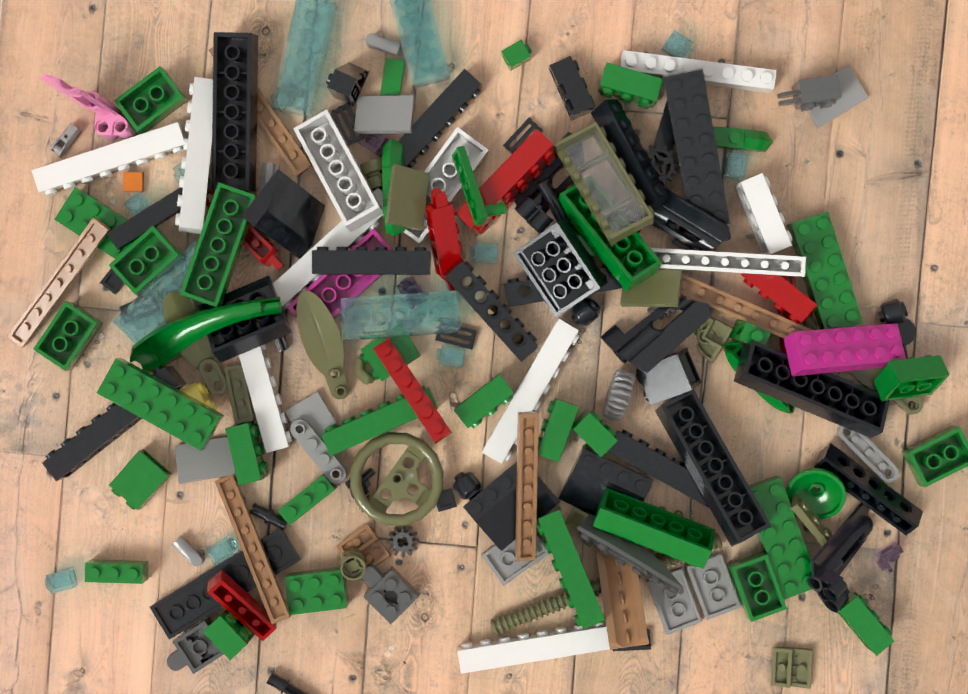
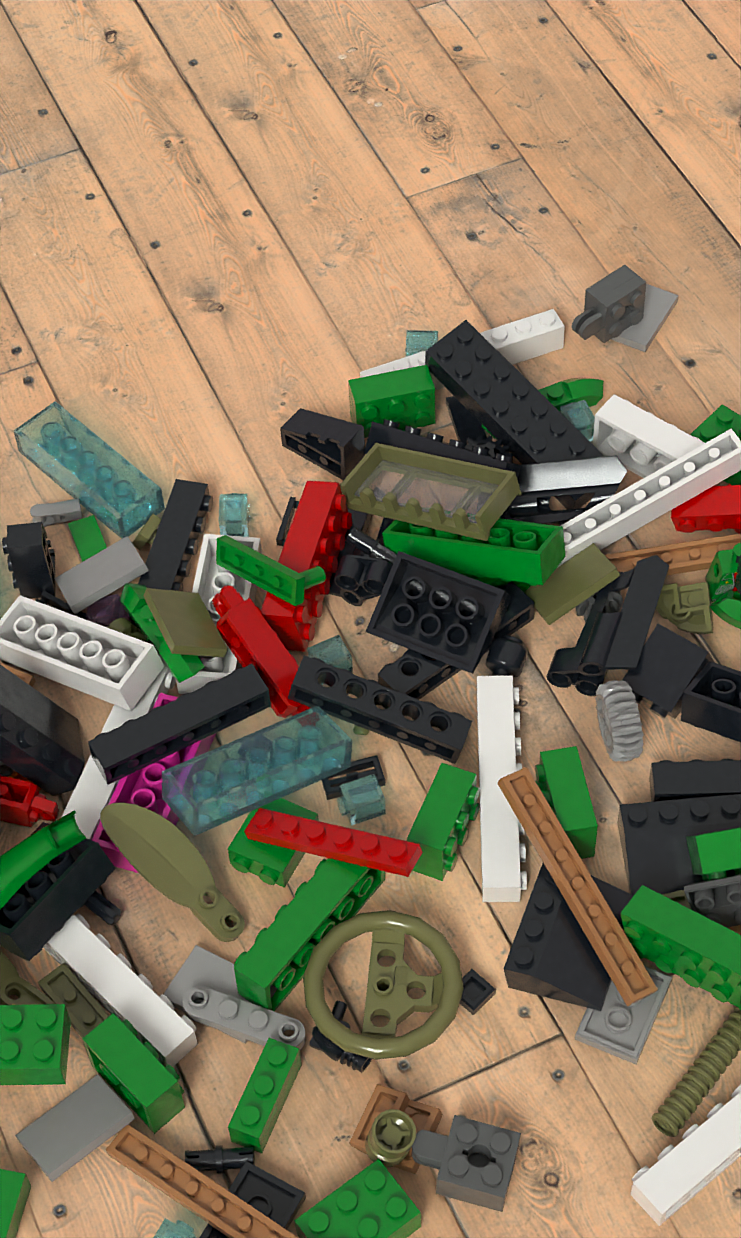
camera: 25 degrees left, 35 degrees down
(361, 373) = (249, 889): olive arm -> none
(405, 547) = (459, 1081): dark grey gear -> none
(428, 95) = (147, 532): none -> olive plate
(467, 485) = (490, 948): black head -> none
(487, 112) = (234, 514): none -> clear light blue brick
(516, 54) = (232, 444): green brick -> none
(596, 435) = (618, 769): green brick -> none

